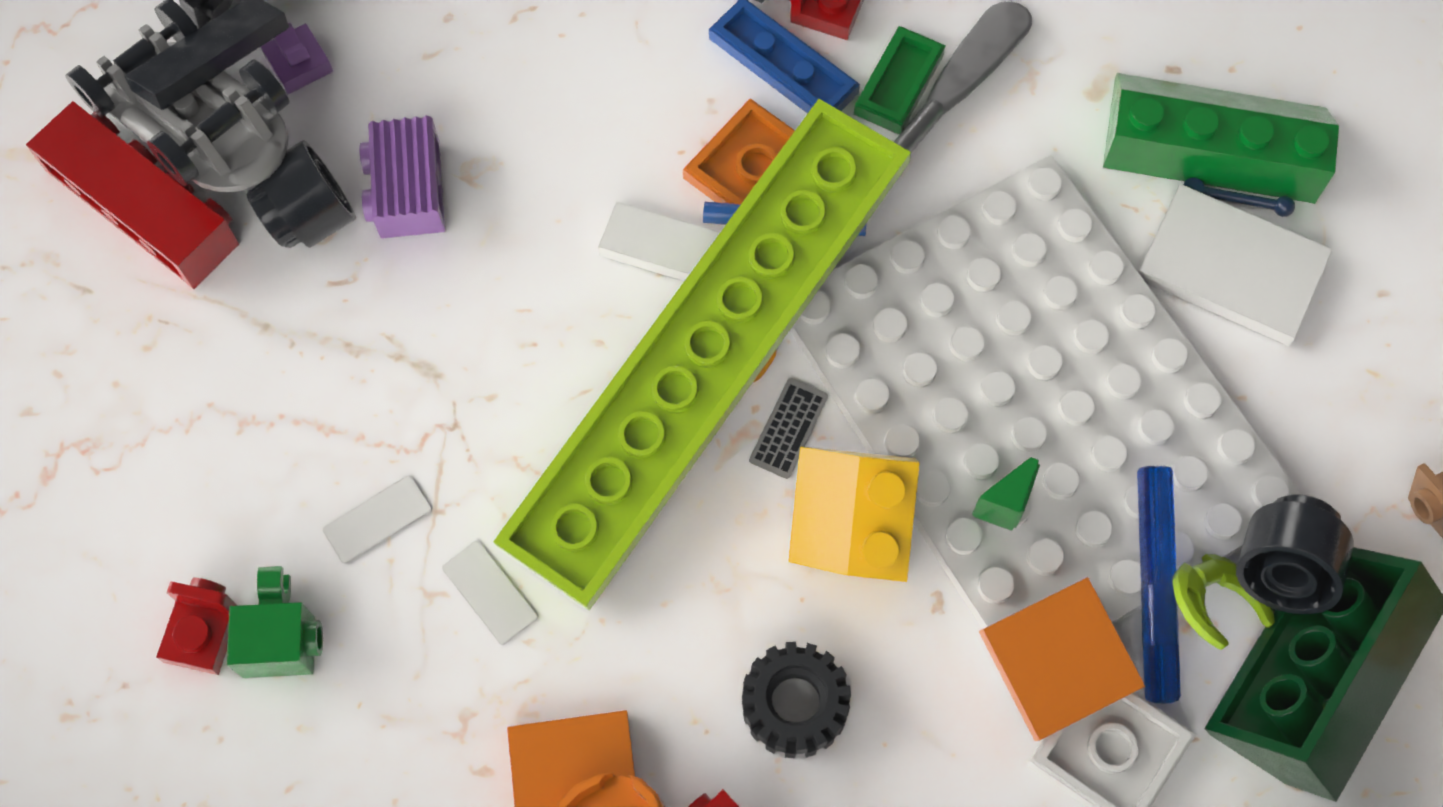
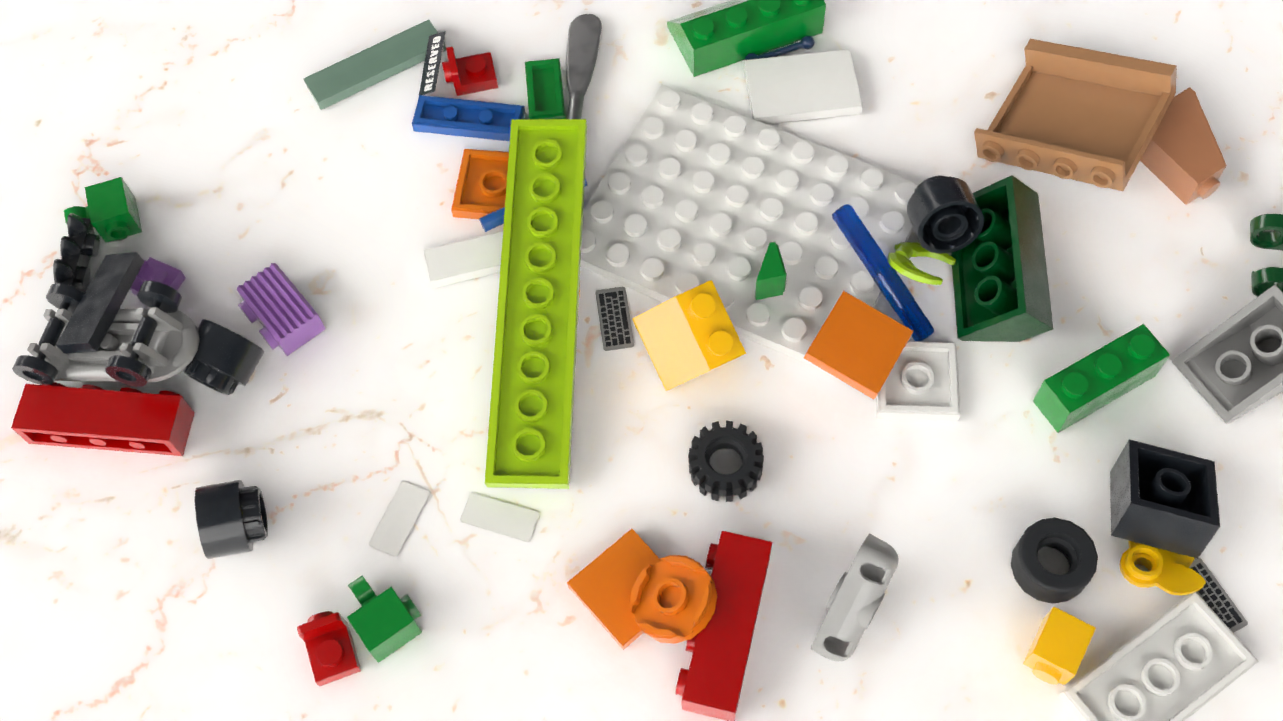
camera: 30 degrees left, 5 degrees down
(184, 400) = (230, 518): none -> black piece

